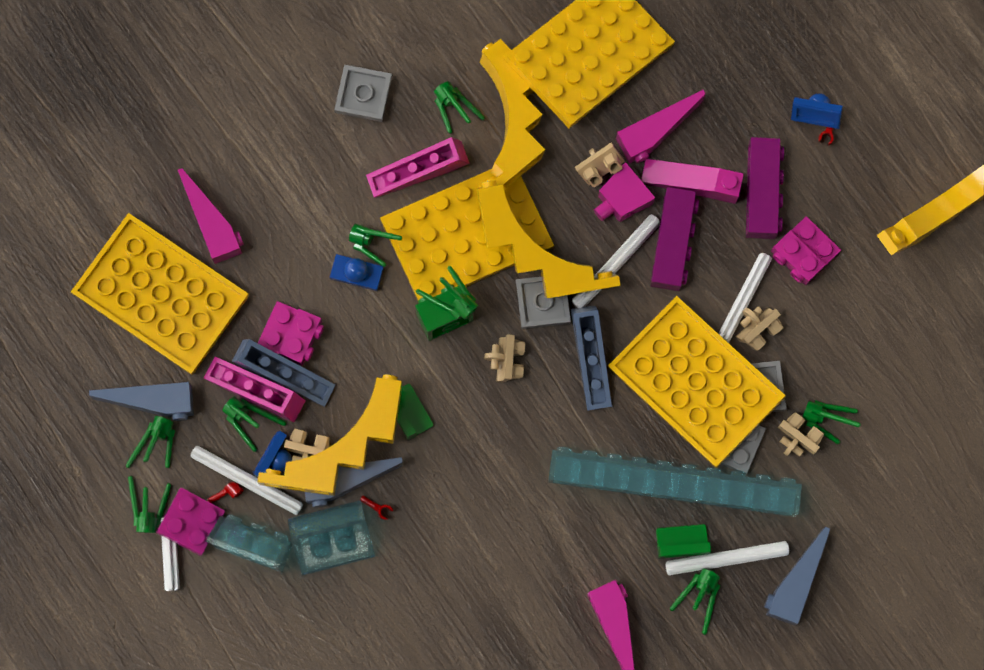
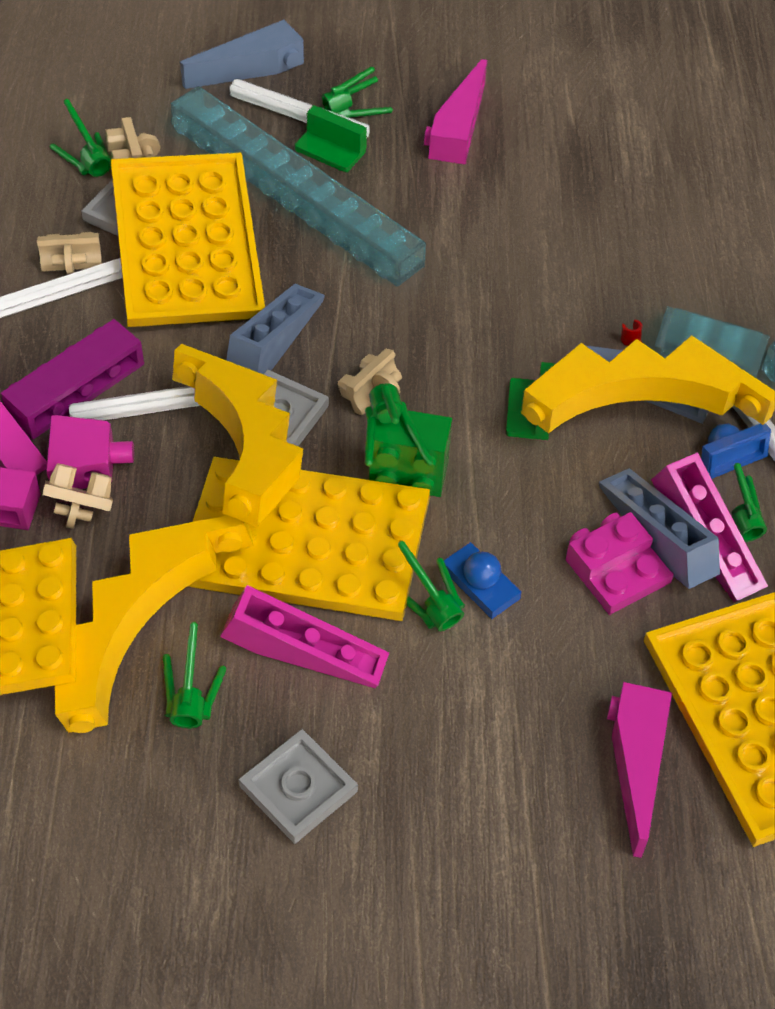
camera: 145 degrees left, 25 degrees down
(297, 444) = (683, 427): tan hips -> none

